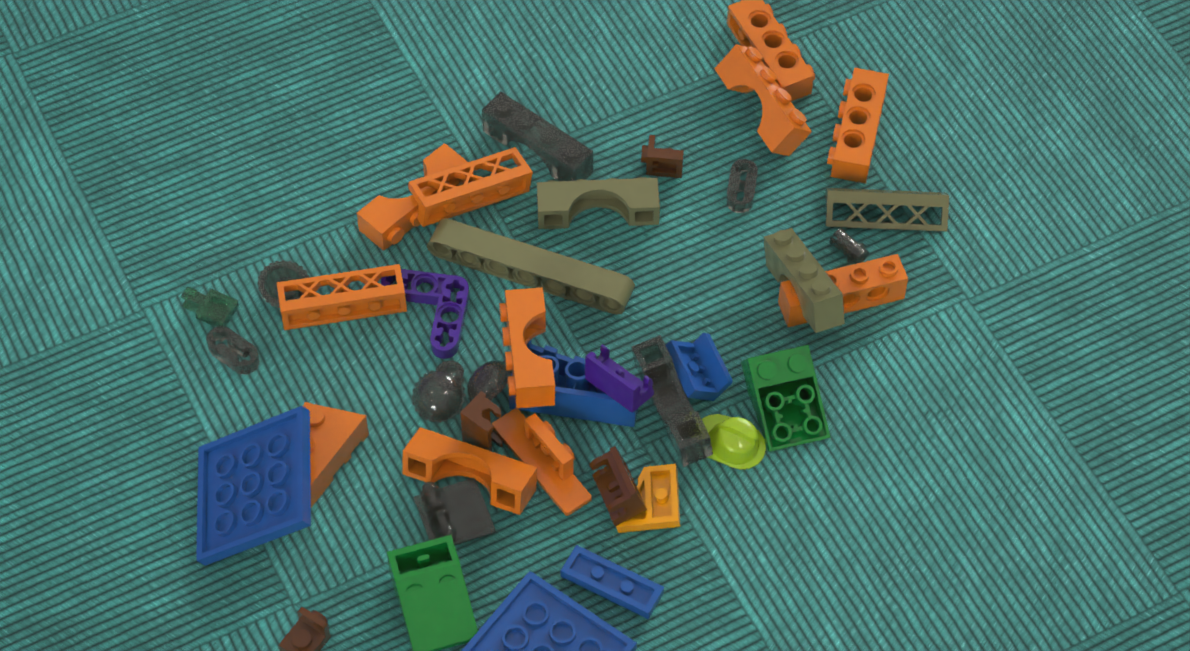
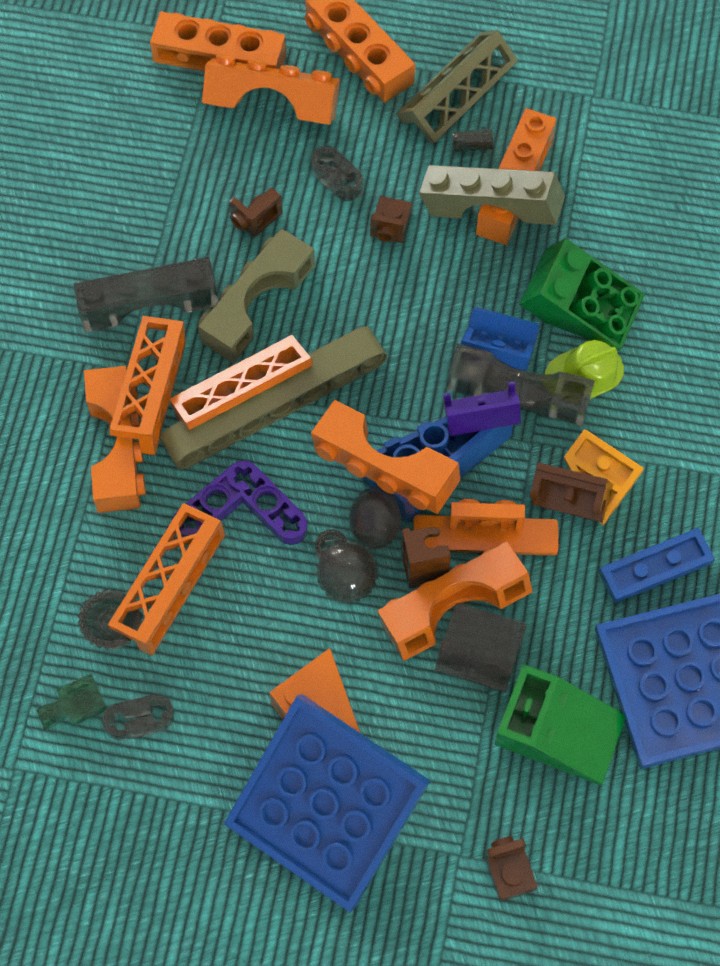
camera: 50 degrees left, 10 degrees up
(518, 235) = (240, 382): none -> orange fence
(735, 241) = (390, 219): none -> reddish brown bracket

